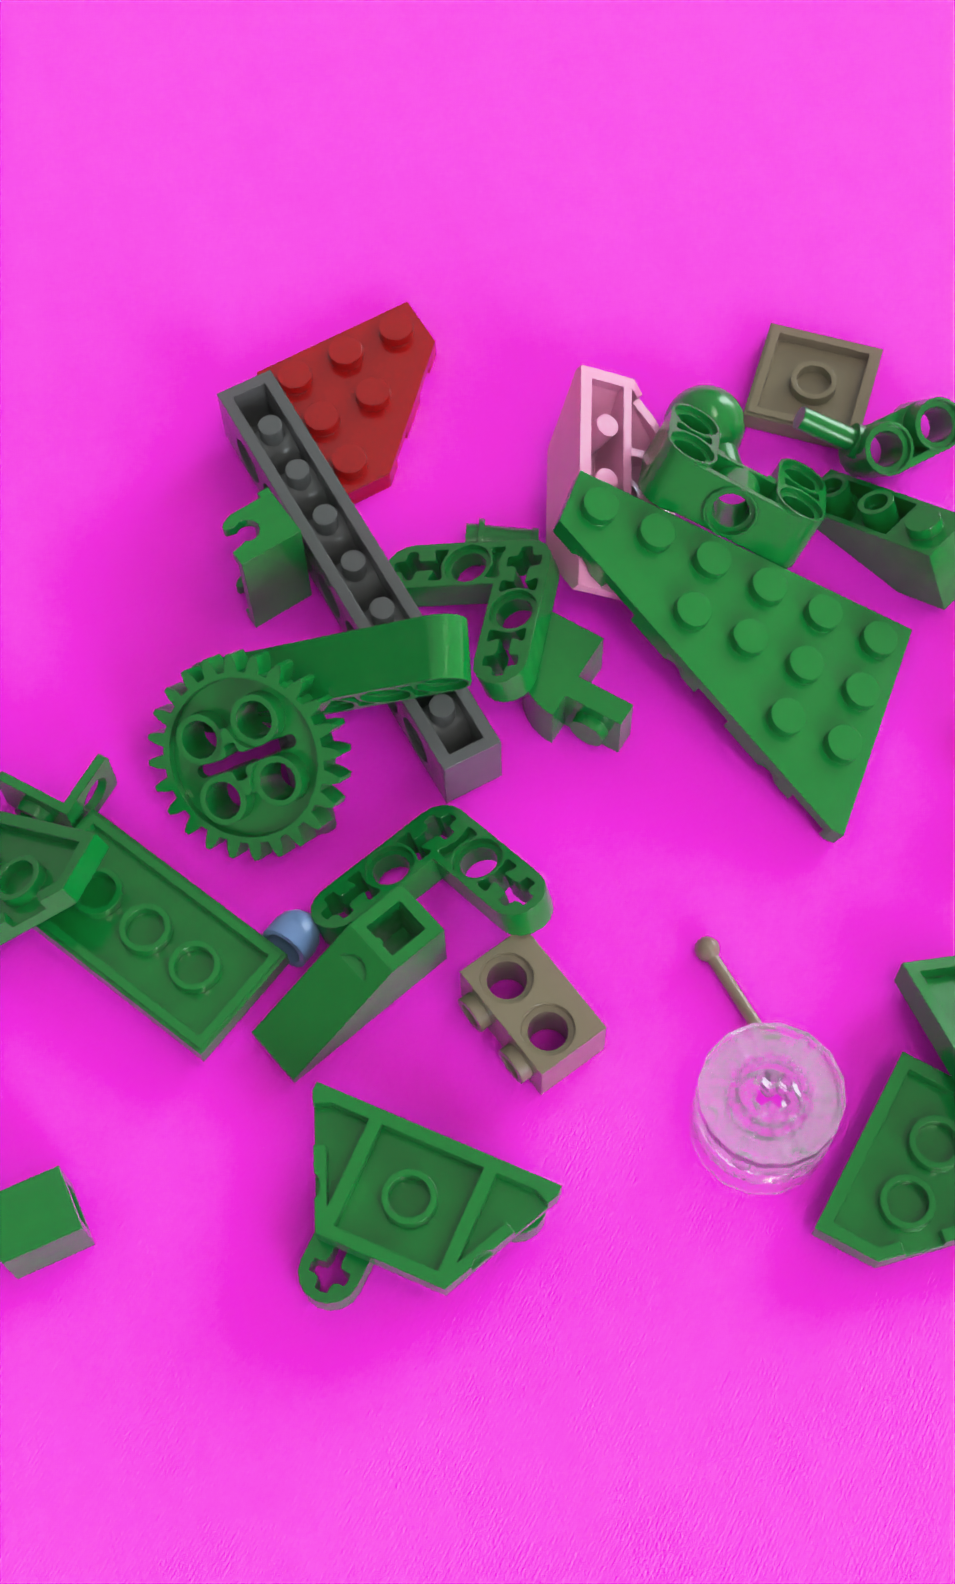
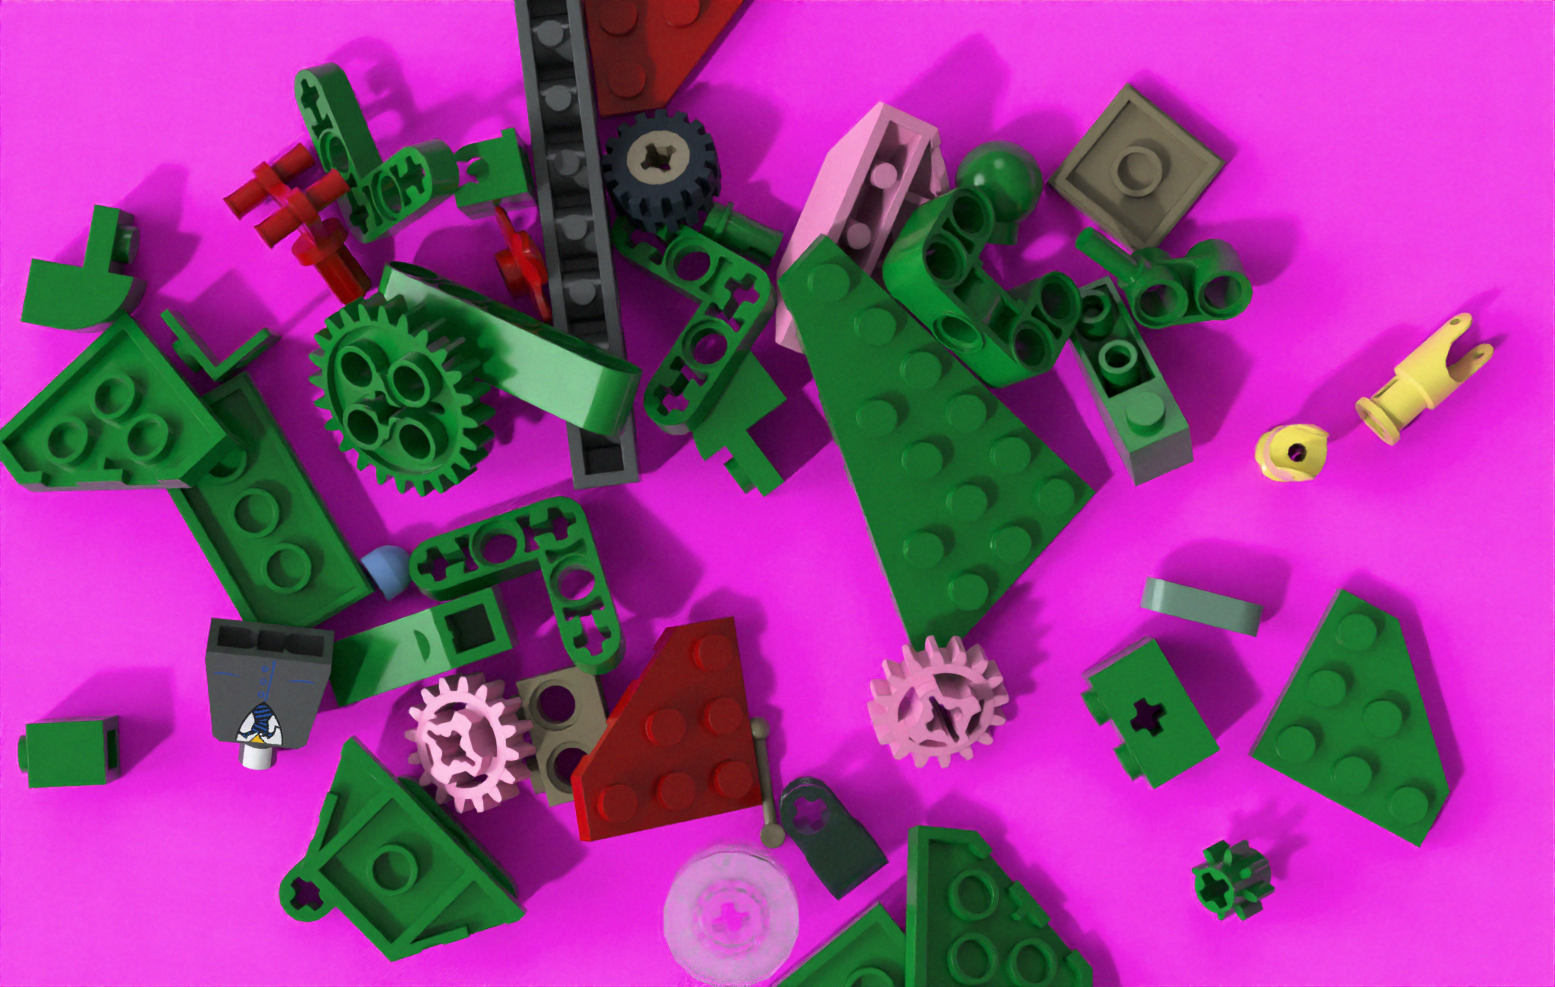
camera: 20 degrees right, 25 degrees up
(101, 650) = (320, 241): none -> red axle
(159, 623) = (382, 194): none -> green beam
(215, 1075) = (265, 685): none -> dark grey torso
(313, 604) = (522, 266): none -> red plate
(413, 509) = (656, 194): none -> black wheel
(432, 1085) = (470, 742): none -> bright pink gear
(634, 975) = (674, 740): none -> red plate
(829, 1007) = (834, 844): none -> piece
(864, 845) = (959, 680): none -> bright pink gear

